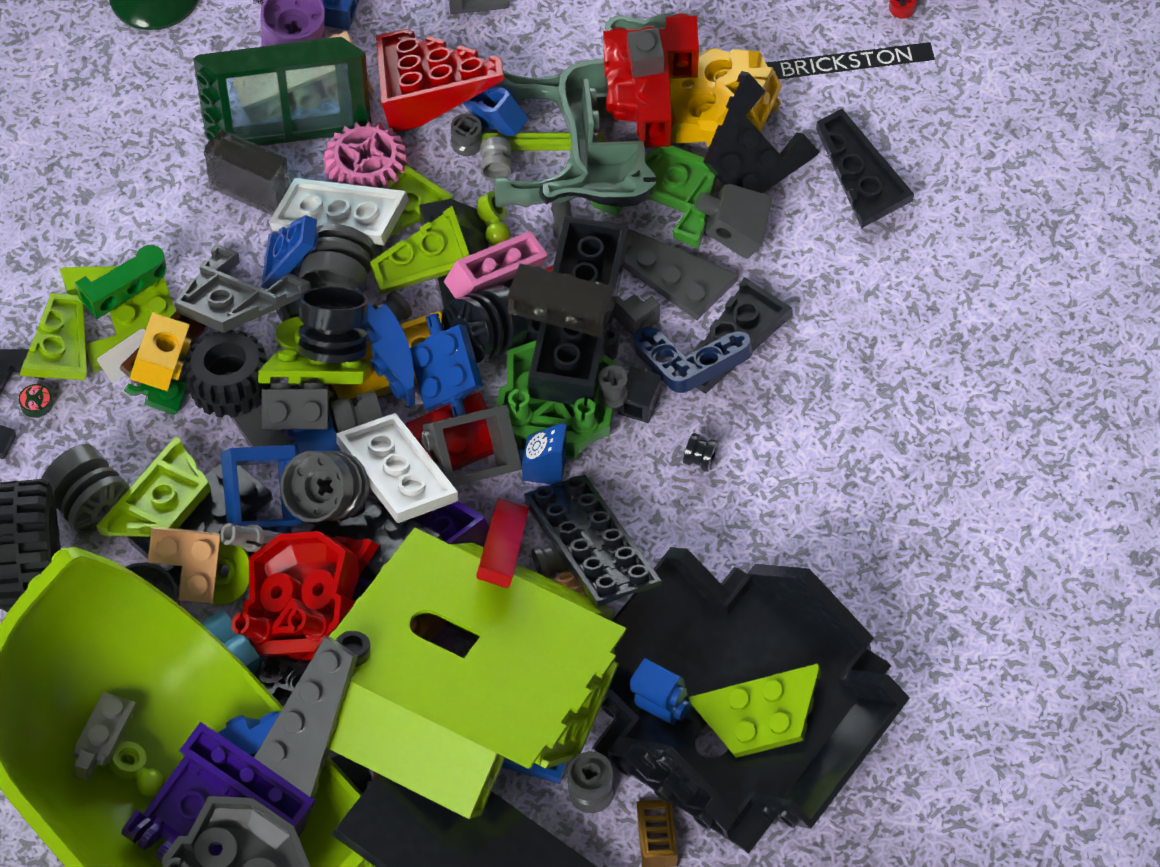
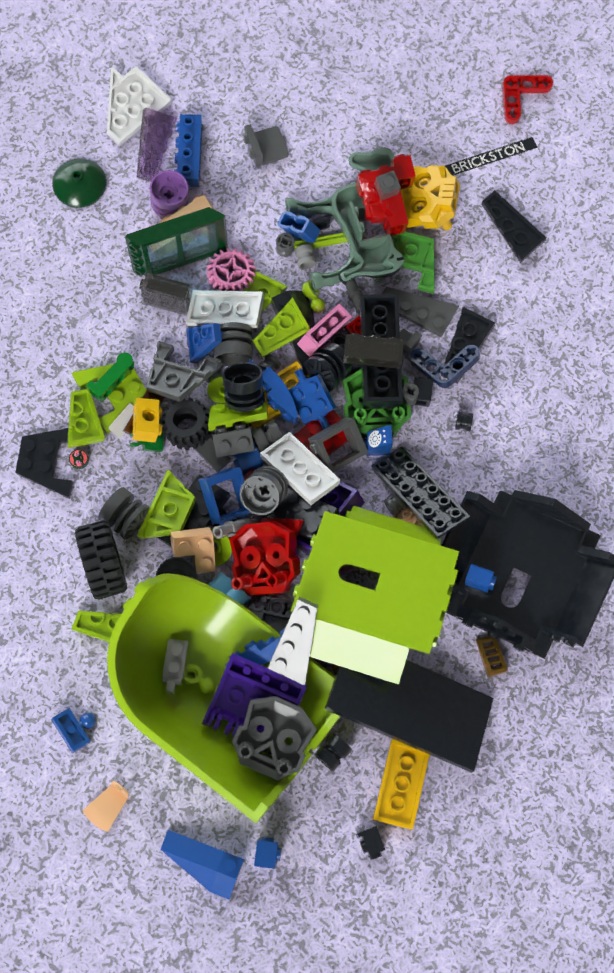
camera: 15 degrees left, 15 degrees up
(357, 643) = (314, 596): black tile -> none
(428, 79) = (255, 213): red slope -> none
(502, 543) = (374, 507): red tile -> none
(537, 113) = (322, 222): none -> black slope
(590, 782) = (451, 635): dark grey wheel -> none
(736, 218) = (452, 271): dark grey torso -> none
(743, 155) = (447, 231): black wing -> none
(760, 711) = (536, 578): lime wing -> none

